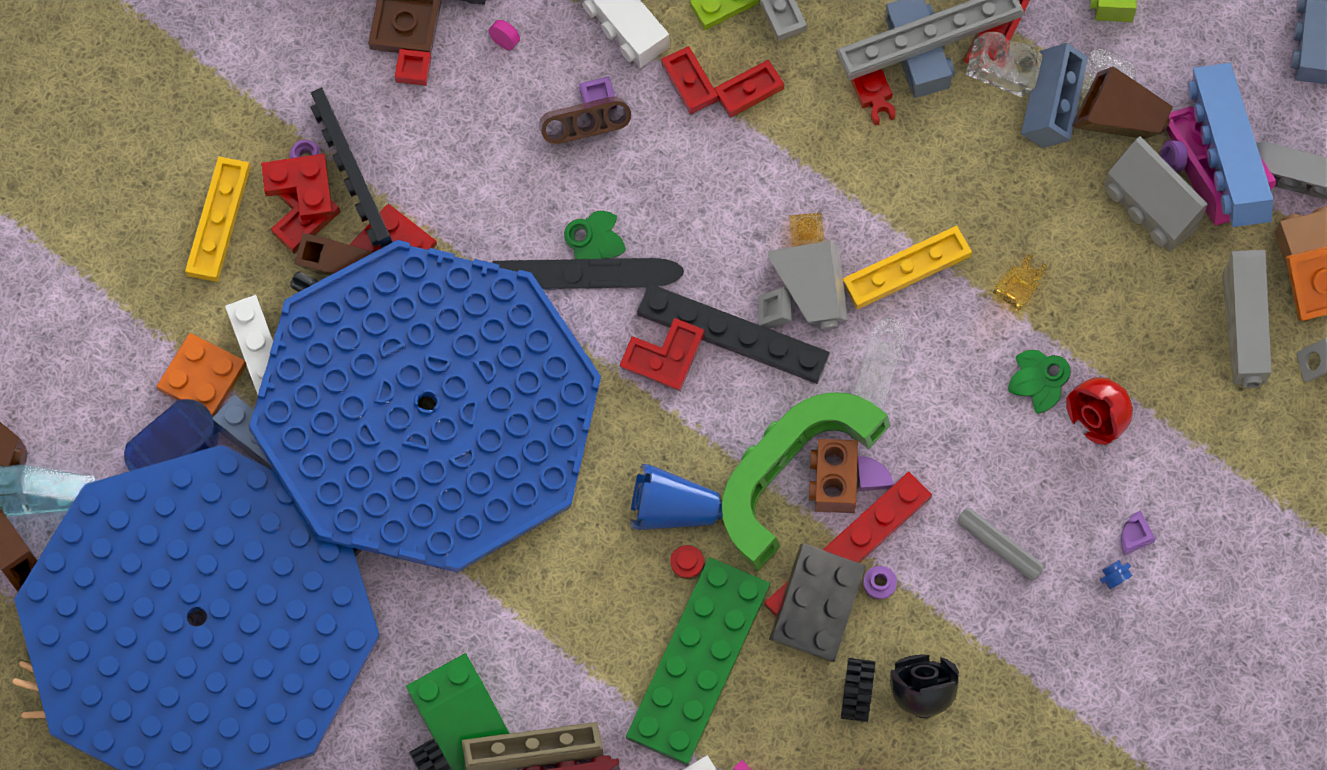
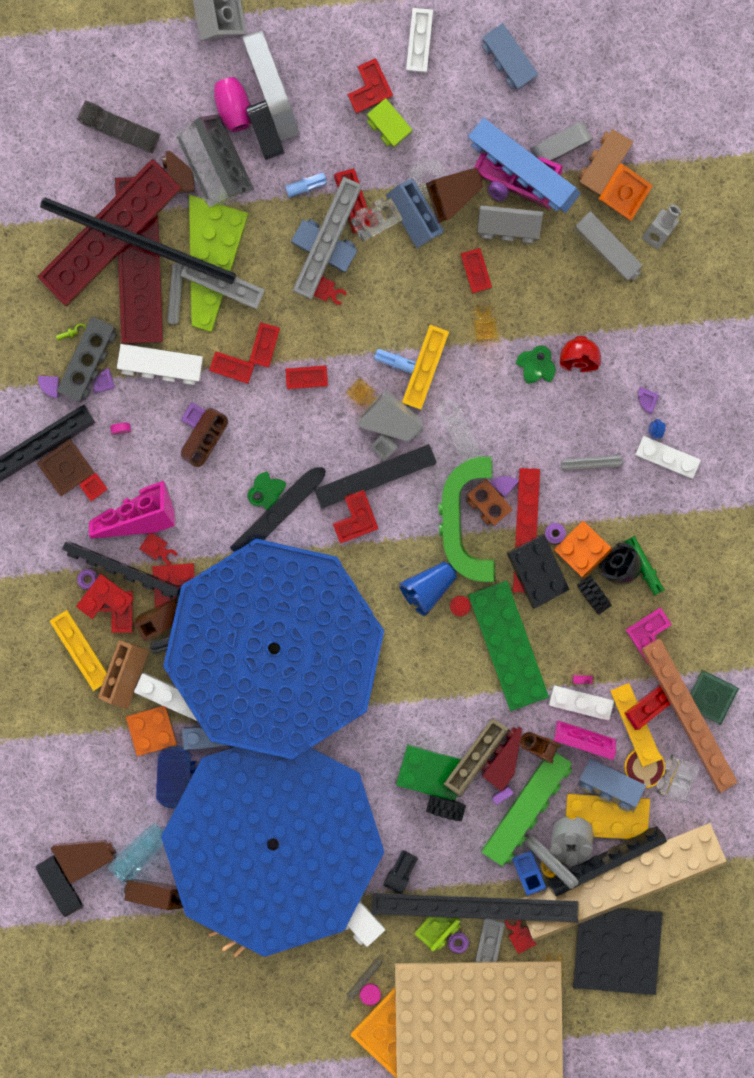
camera: 45 degrees left, 20 degrees up
(233, 279) = (123, 674): none -> medium nougat brick
(412, 190) = (155, 547): none -> red plate
(437, 144) = (146, 513): none -> dark pink wedge
(761, 161) = (306, 377): none -> red plate
(878, 230) = (395, 361): none -> light blue axle
(895, 629) = (583, 549): none -> orange plate
(948, 729) = (647, 571): none -> green pin
(1066, 217) = (476, 270): none -> red plate
(1099, 620) = (667, 457): none -> white plate

